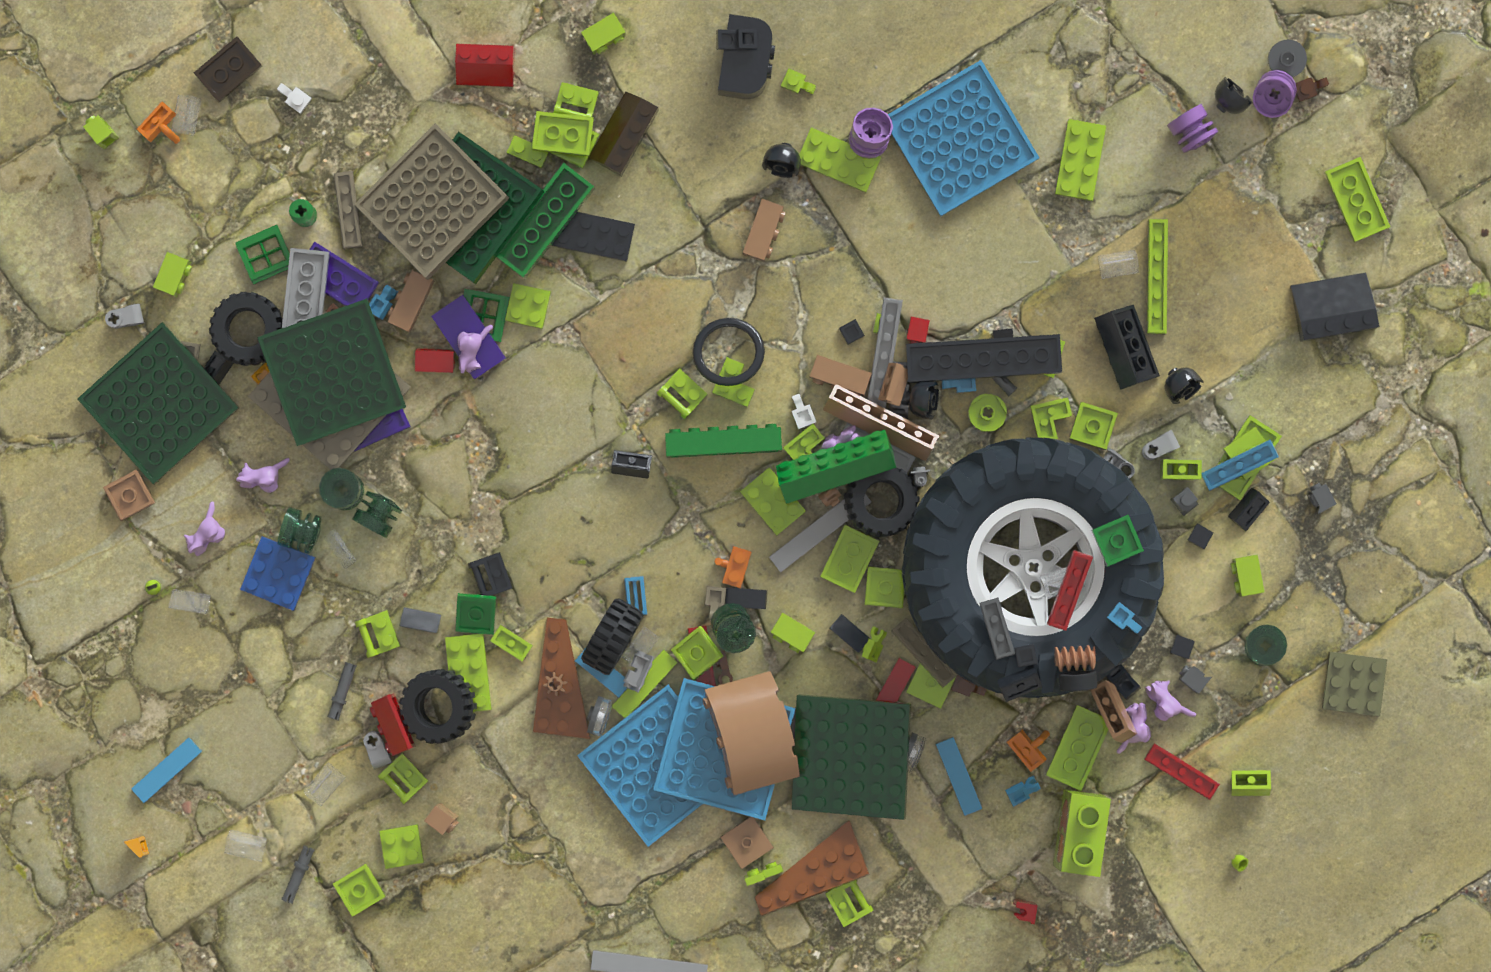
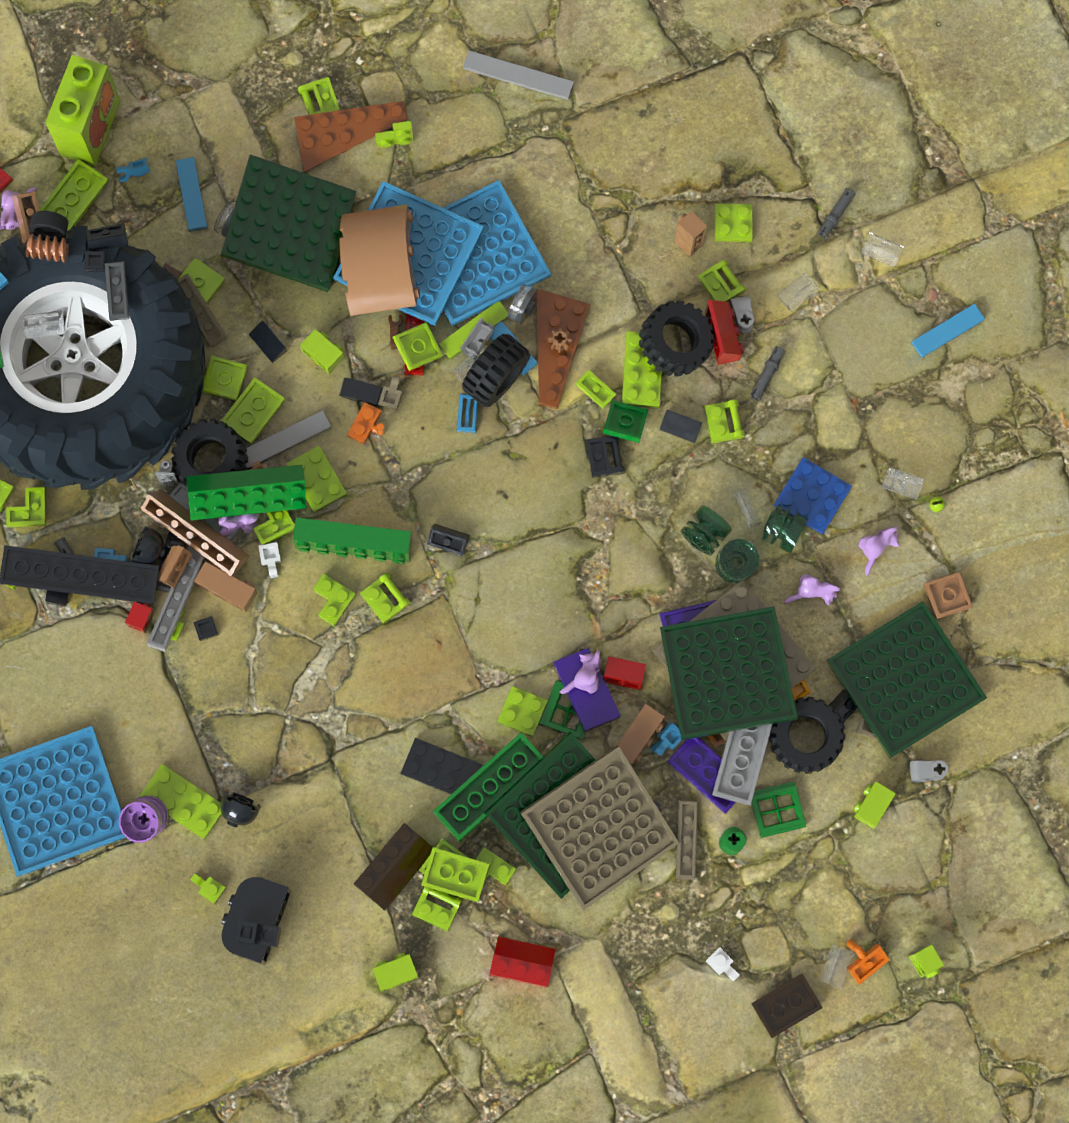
camera: 175 degrees left, 10 degrees down
(138, 846) = (985, 262): light orange slope -> none
(359, 890) = (780, 189): lime plate -> none
(729, 619) = (378, 361): clear green wheel -> none
(735, 380) = (341, 599): black wedge -> none
(747, 842) = (405, 169): medium nougat plate -> none
(764, 230) = (272, 742): medium nougat brick -> none
(874, 647) = (248, 323): lime plate -> none
(896, 681) = (235, 287): red tile -> none
(990, 402) = (85, 536): lime plate -> none
(1027, 749) = (120, 204): orange plate -> none
(1027, 910) = (151, 61): red hinge -> none
(1069, 590) = (37, 311): red tile -> none

